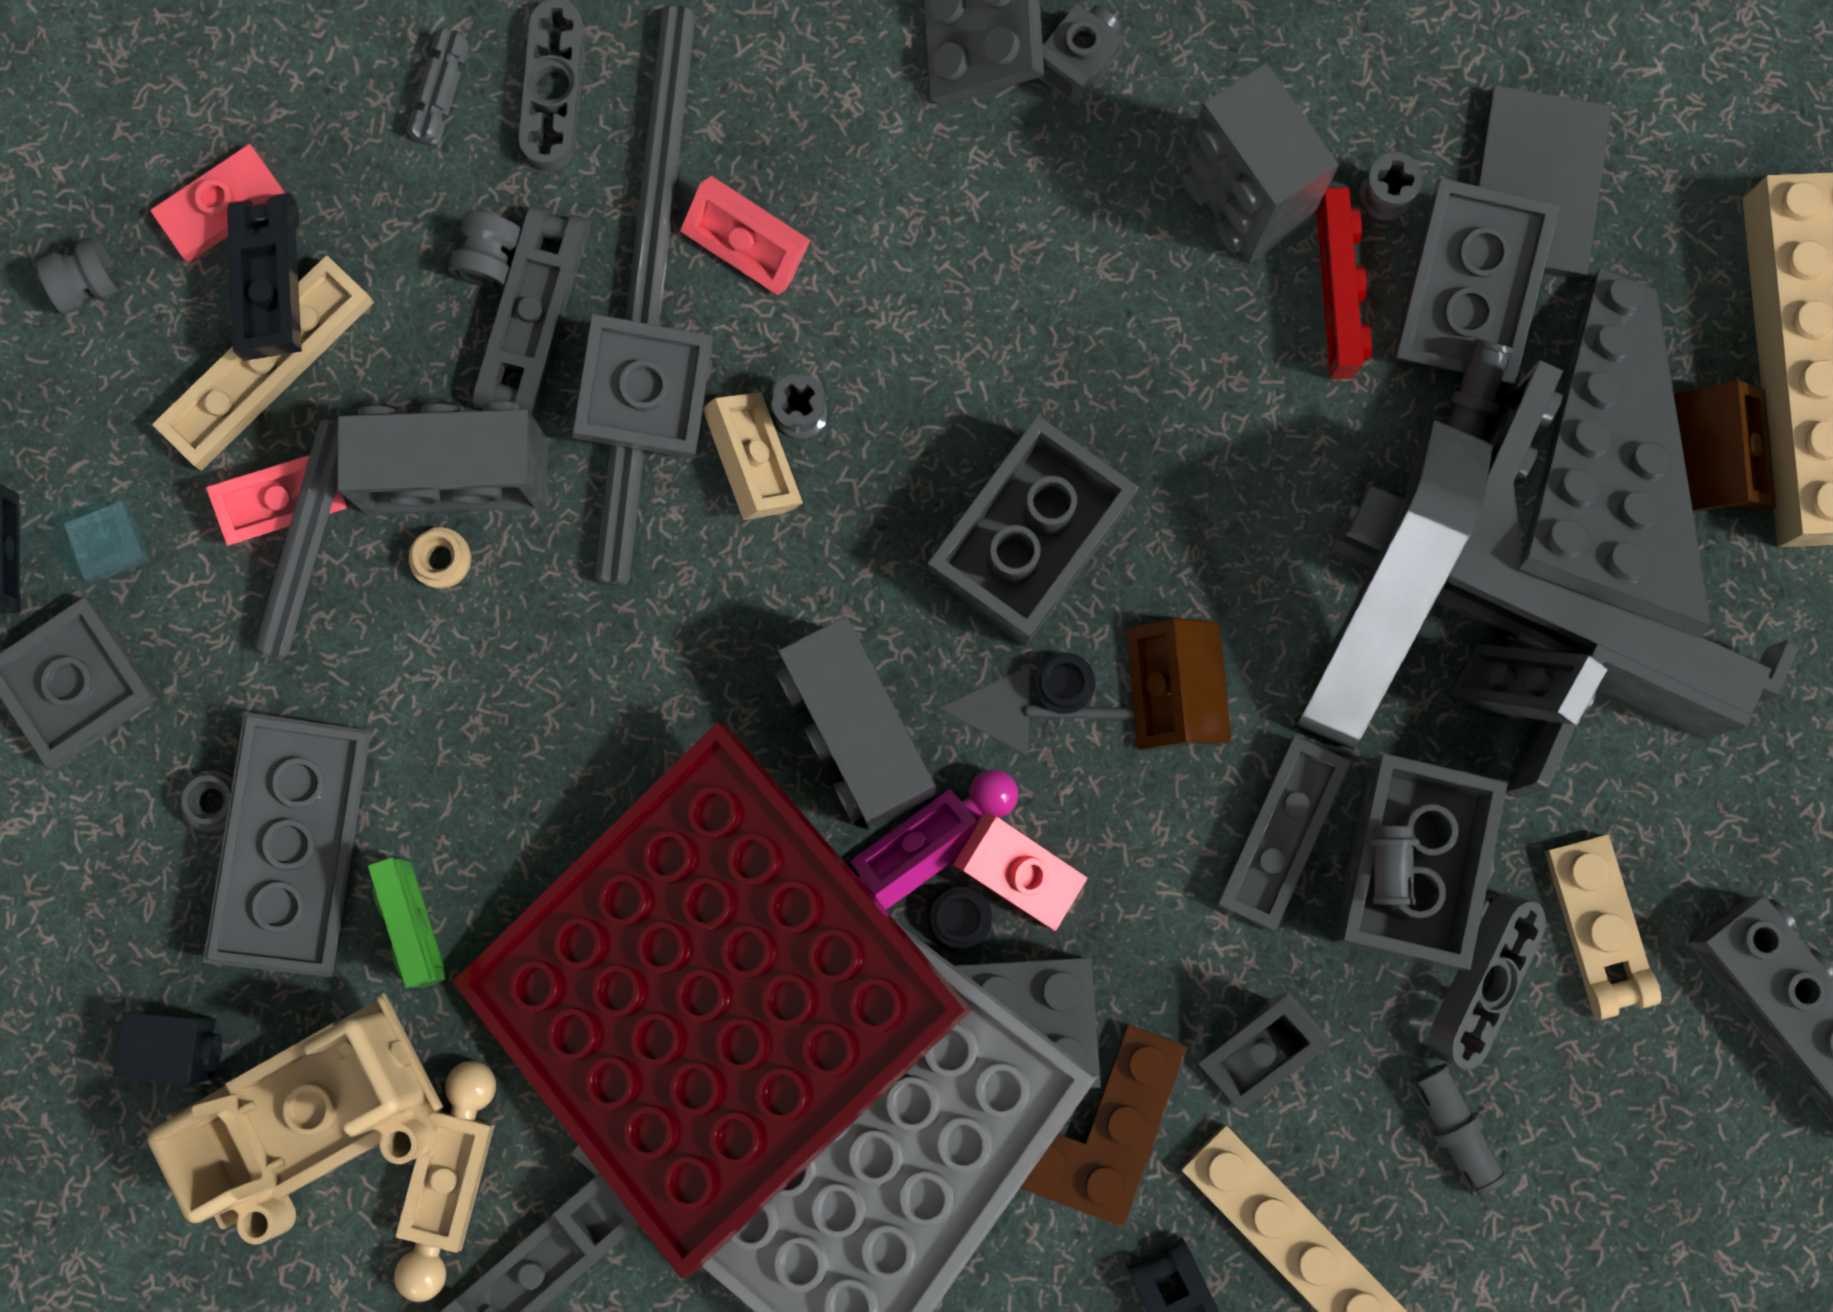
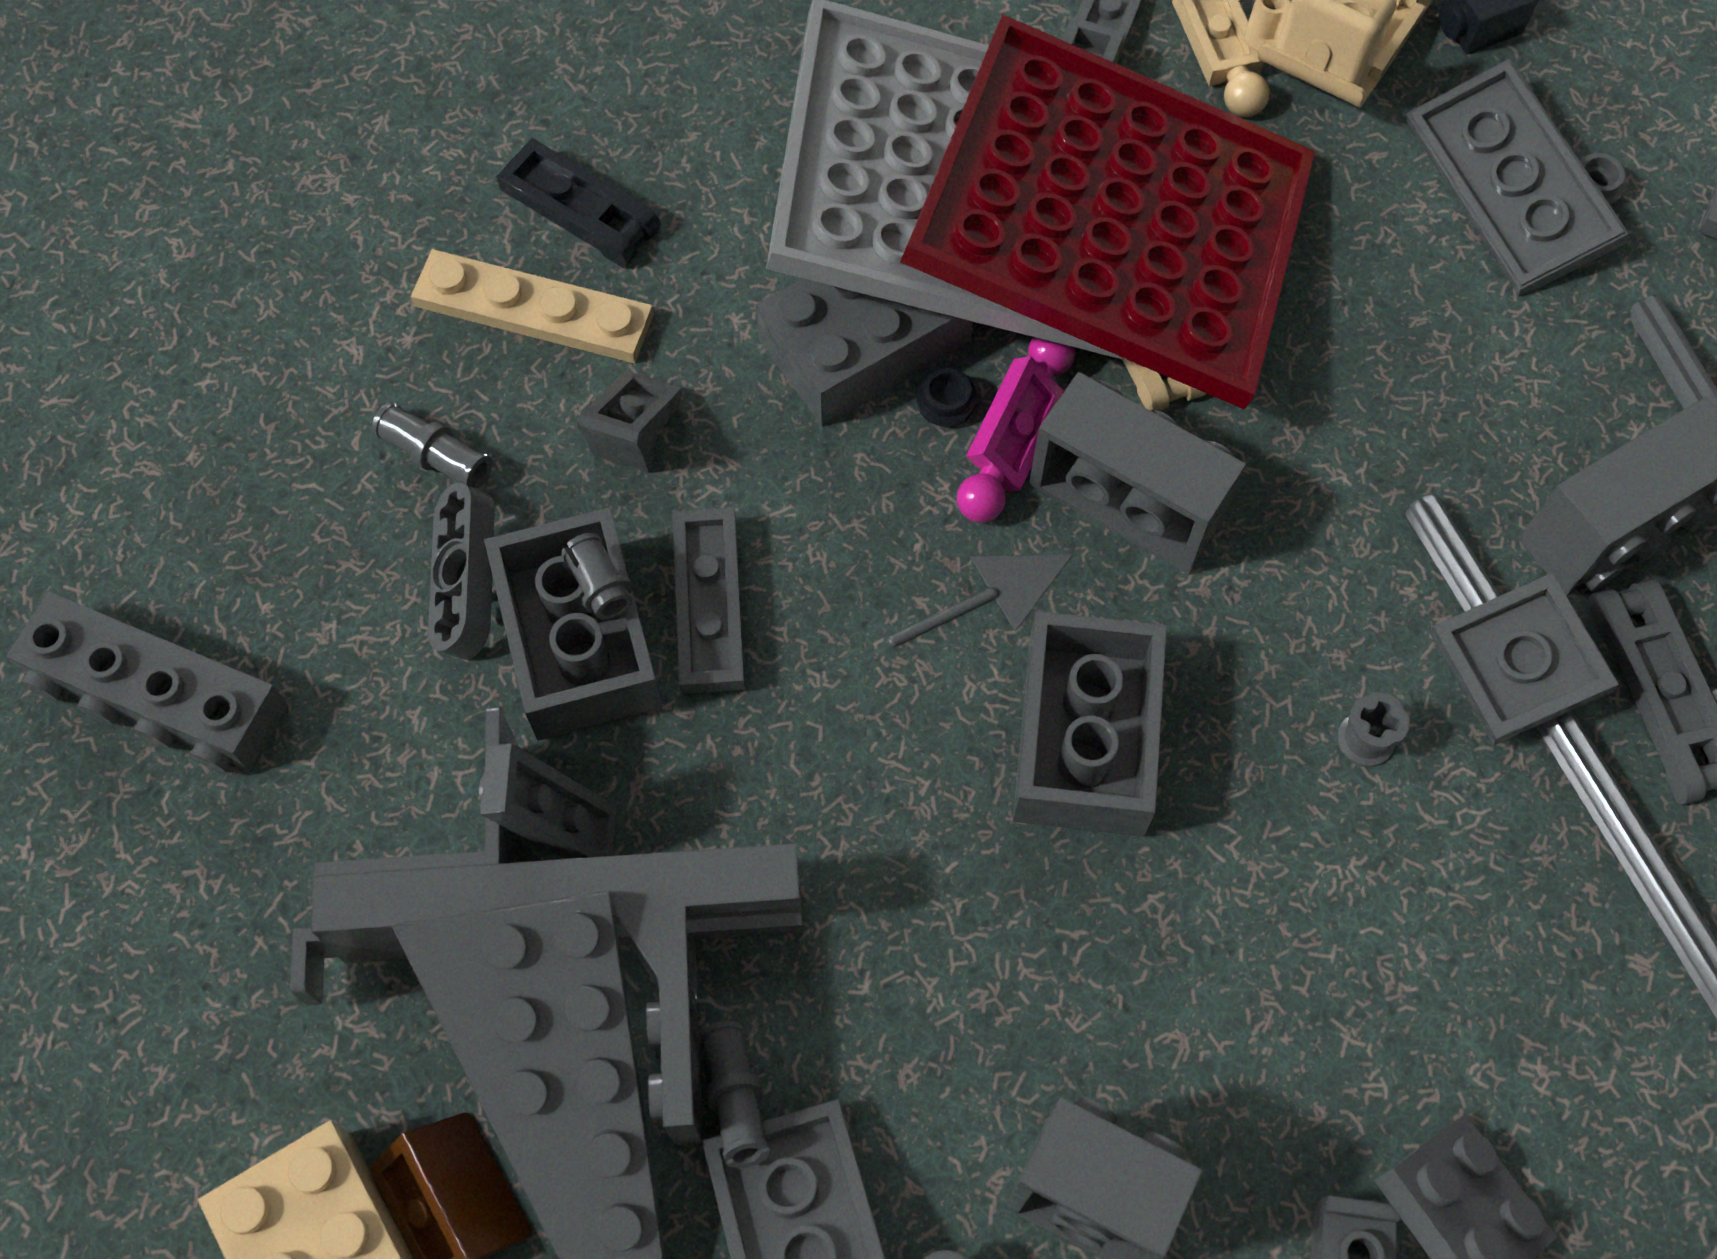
camera: 150 degrees right, 15 degrees down
(407, 922) = (1381, 161): bright green plate -> none
(424, 547) = (1580, 431): tan plate -> none
(744, 235) = (1538, 863): coral plate -> none
(752, 455) = (1381, 661): tan plate -> none
(1020, 871) = (920, 445): plate -> none
(1064, 683) = (976, 626): black plate -> none
(1108, 1167) = (714, 287): reddish brown plate -> none
(1178, 684) = (870, 677): reddish brown panel -> none
(1342, 284) = (935, 1148): red plate -> none
(1412, 566) = (722, 859): beam -> none
(1602, 926) = (378, 676): tan plate -> none

